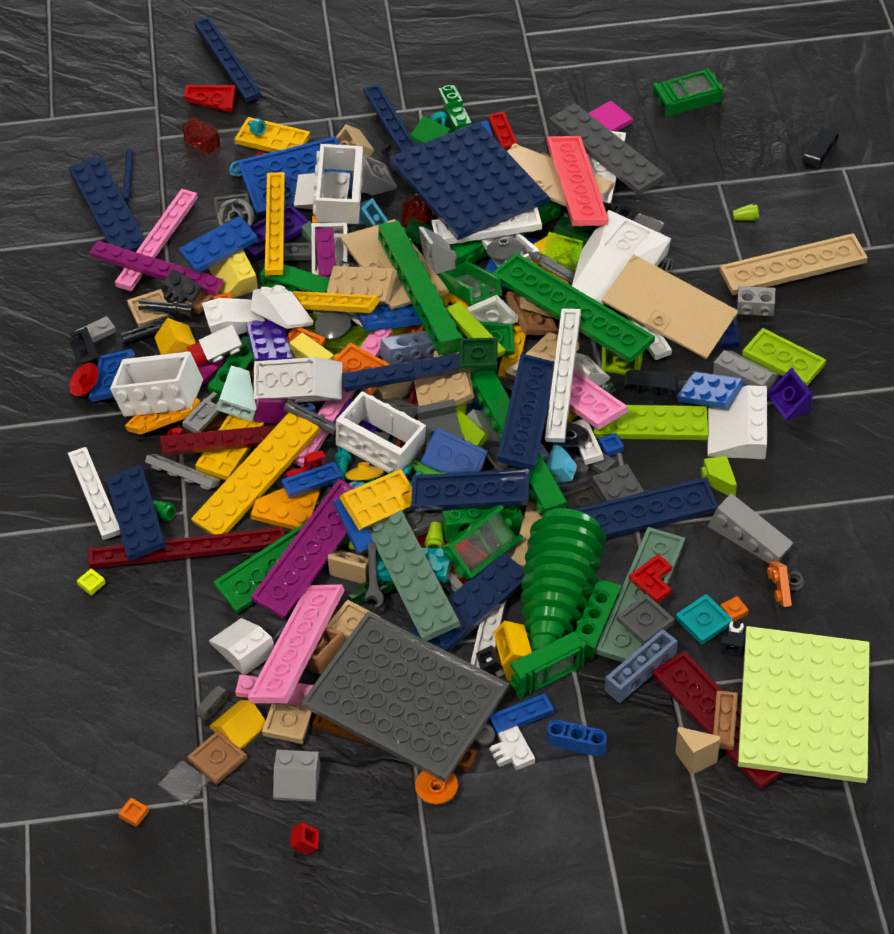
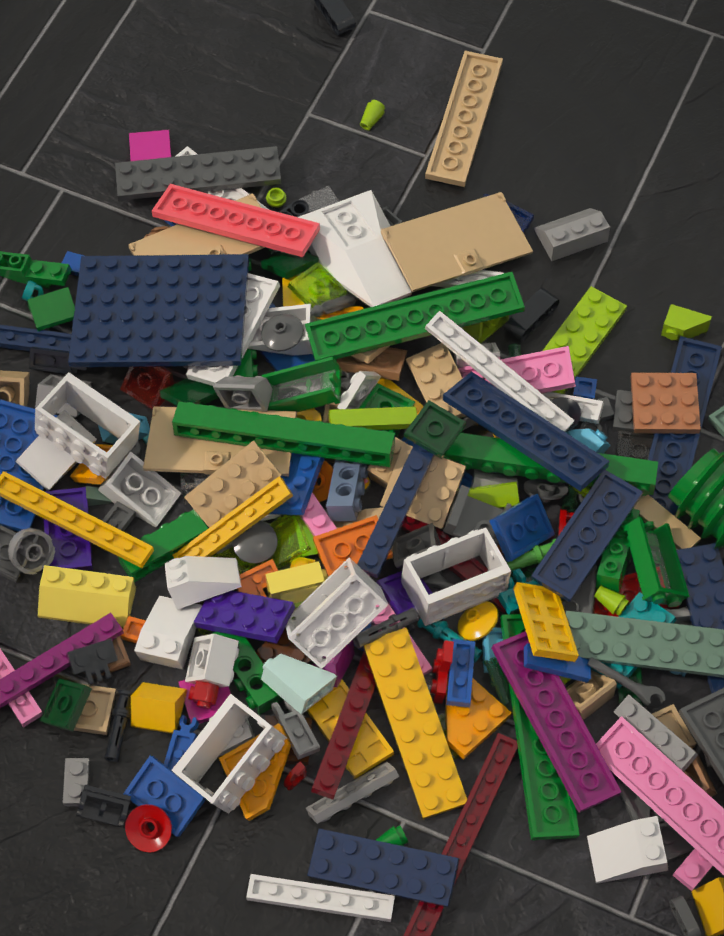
camera: 60 degrees left, 10 degrees up
(140, 292) = (66, 704): none -> dark green tile
(174, 308) = (116, 682): black pin -> none
(218, 244) = (65, 590): blue plate -> none
(325, 251) = (150, 496): magenta plate -> none
(342, 610) = (656, 733): none -> light grey plate
(502, 130) = (89, 245): red tile -> none
(627, 199) = (276, 197): none -> lime plate
(635, 493) = (665, 403): none -> nougat plate
(688, 92) = (173, 64): green door -> none
(710, 390) = (578, 271): plate -> none
(741, 427) = (630, 272): white slope -> none
(756, 301) = (490, 172): light grey brick -> none
(782, 355) = (574, 192): lime plate -> none
(791, 395) = (628, 213): dark purple slope -> none

